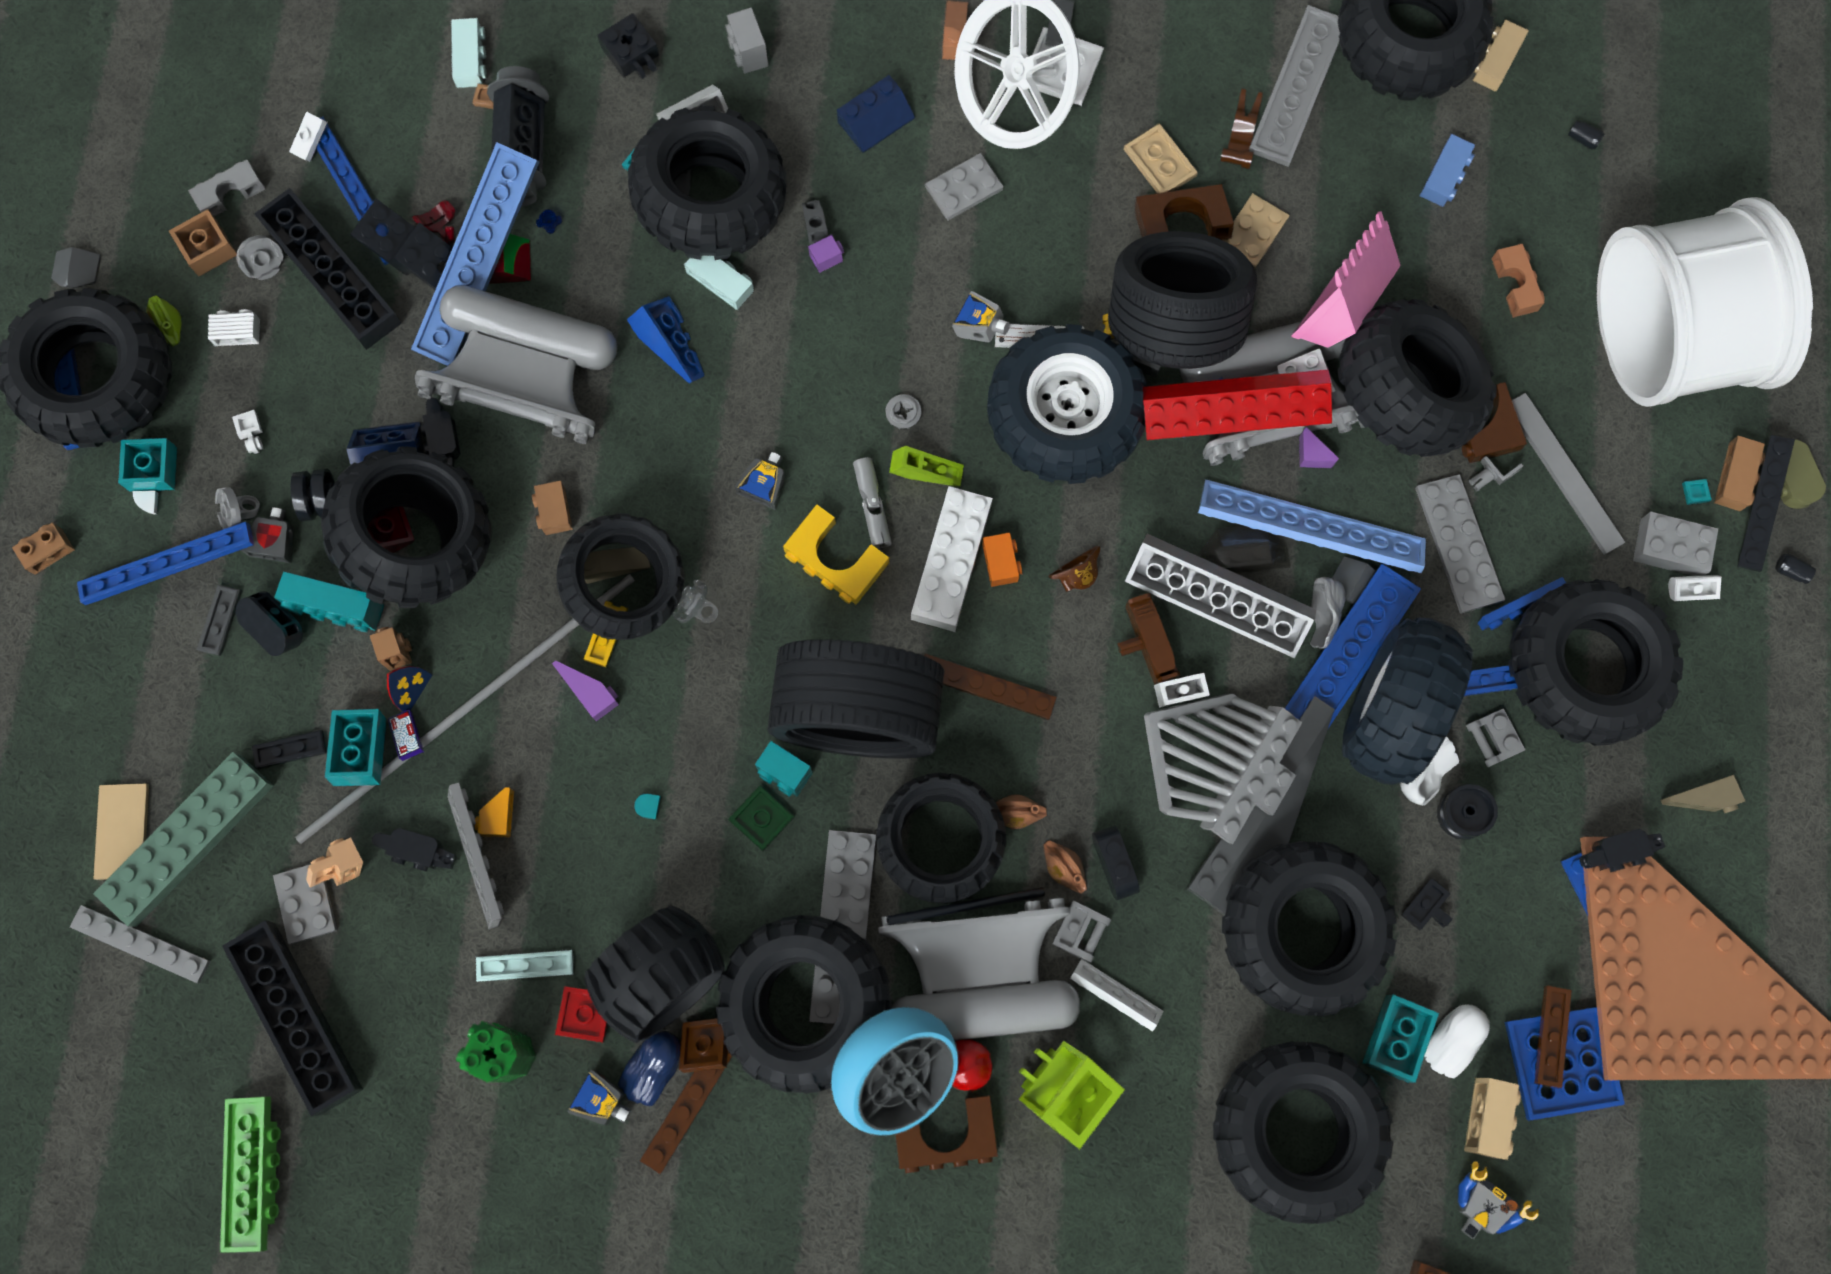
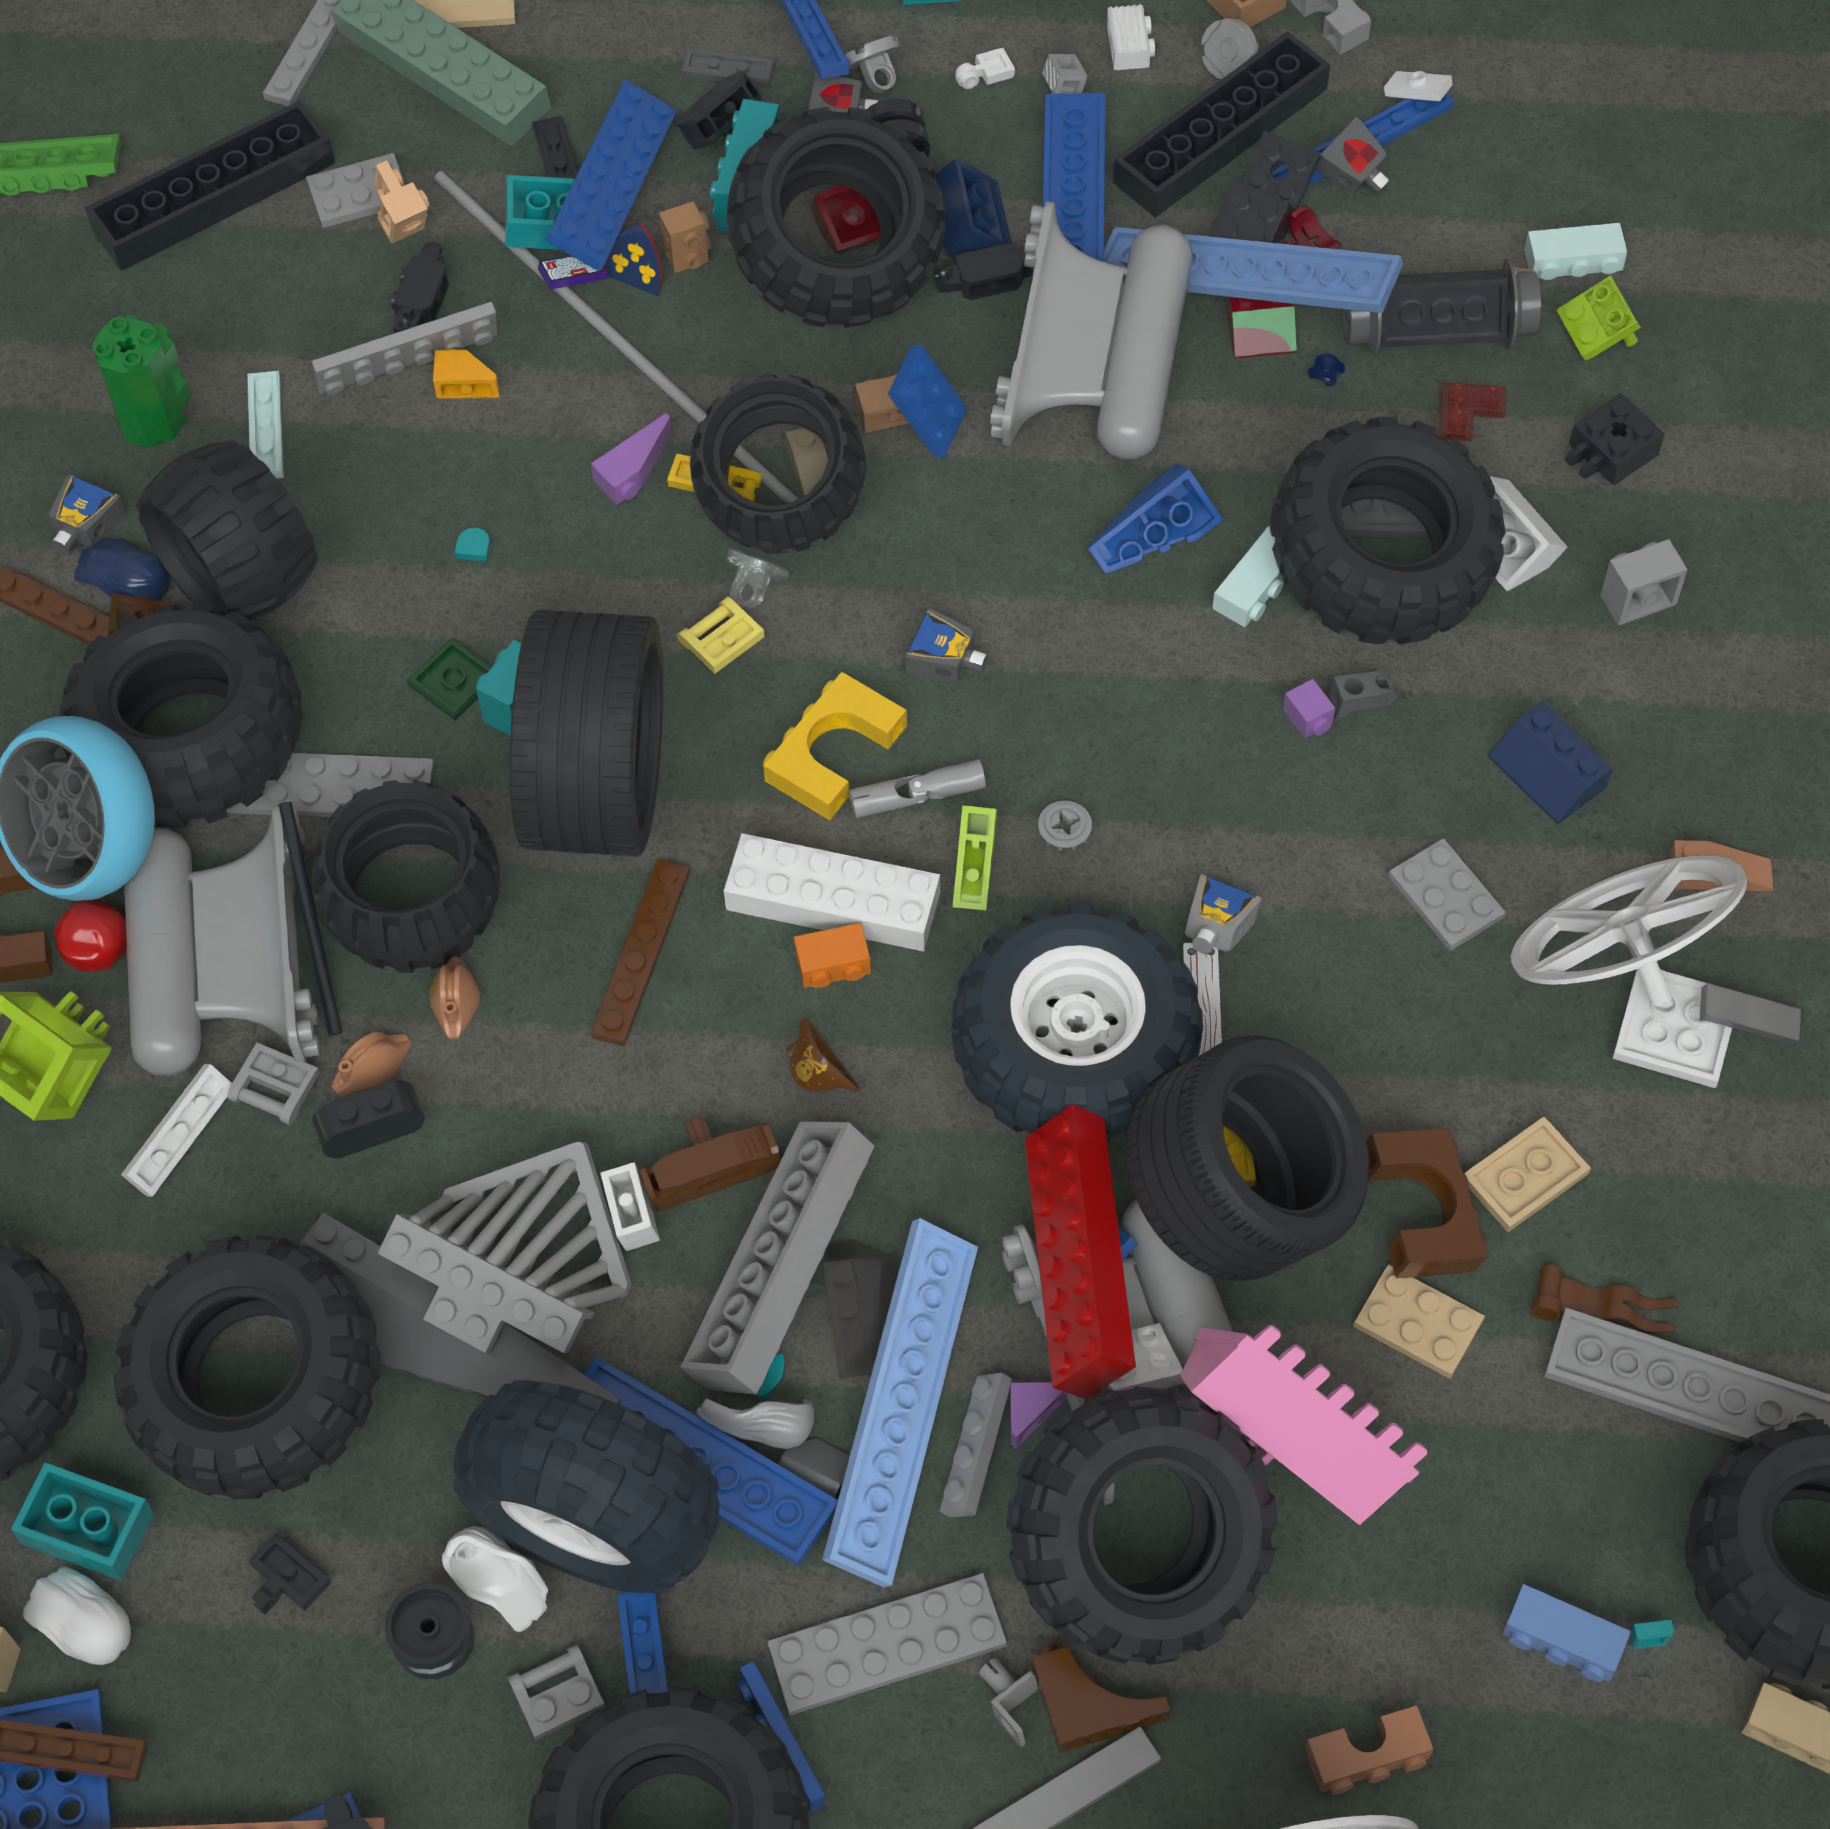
camera: 90 degrees right, 15 degrees down
(265, 375) = (1064, 74): none -> light grey brick
(328, 701) = (611, 176): none -> blue plate
(358, 372) = (1076, 167): none -> blue plate
(370, 182) = (1354, 159): none -> dark grey torso
(527, 43) = (1599, 319): none -> lime plate
(564, 477) = (927, 401): none -> blue plate
(585, 139) = (1463, 402): none -> clear red plate
(744, 625) = (727, 640): none -> light yellow plate
(1337, 485) = (975, 1445): none -> light grey plate
(1446, 126) = (1651, 1634): none -> teal tile

